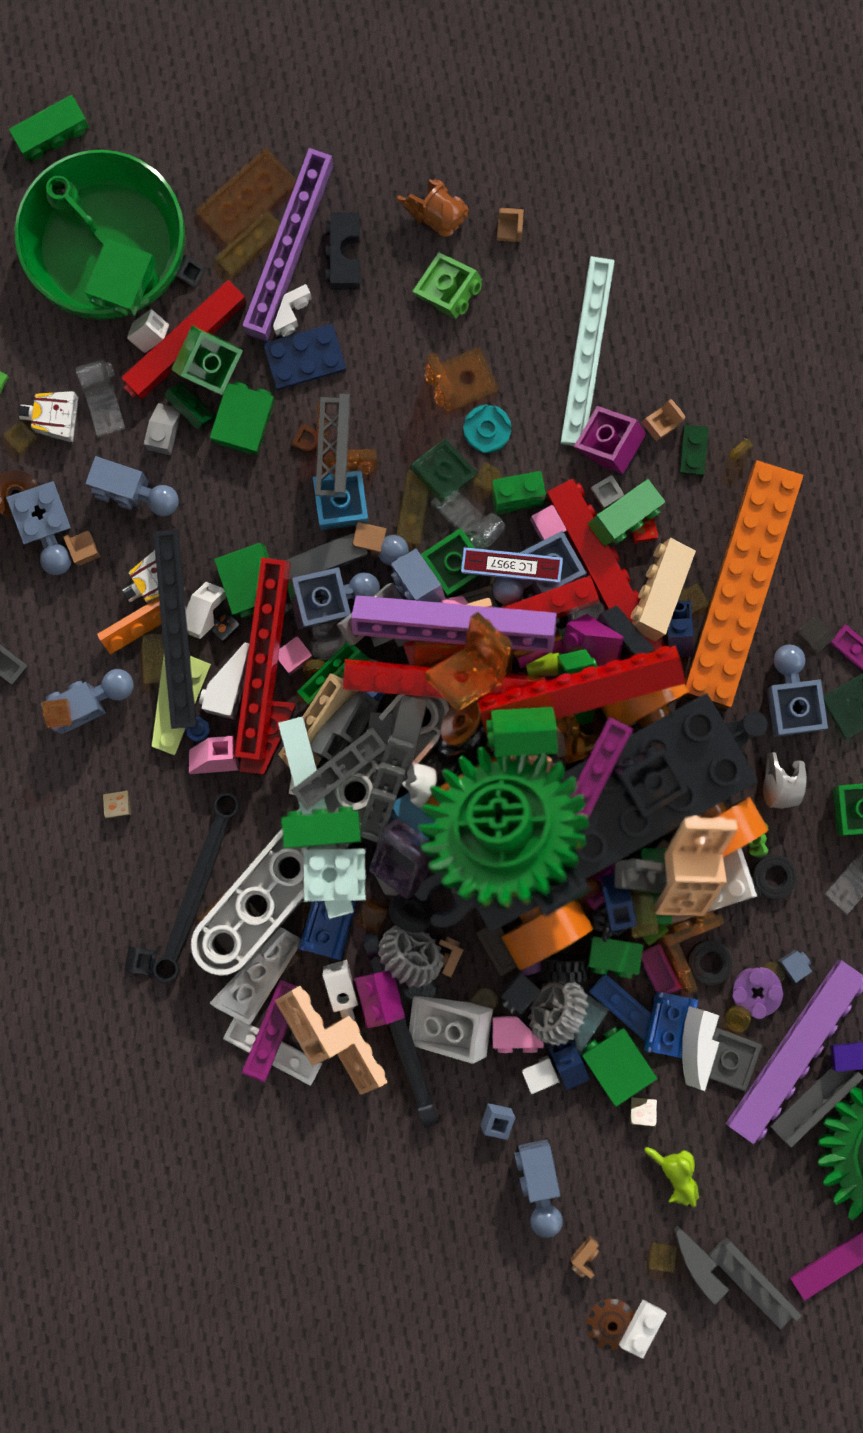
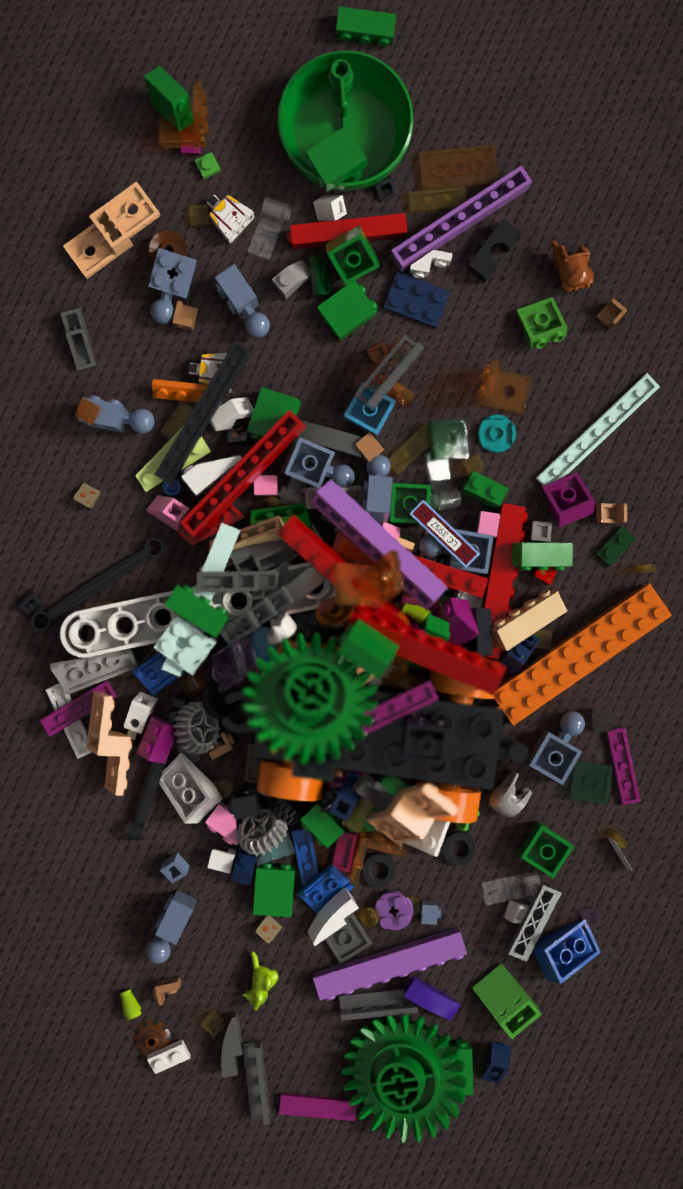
camera: 40 degrees right, 5 degrees up
(560, 1304) = (130, 1006): none -> lime cone

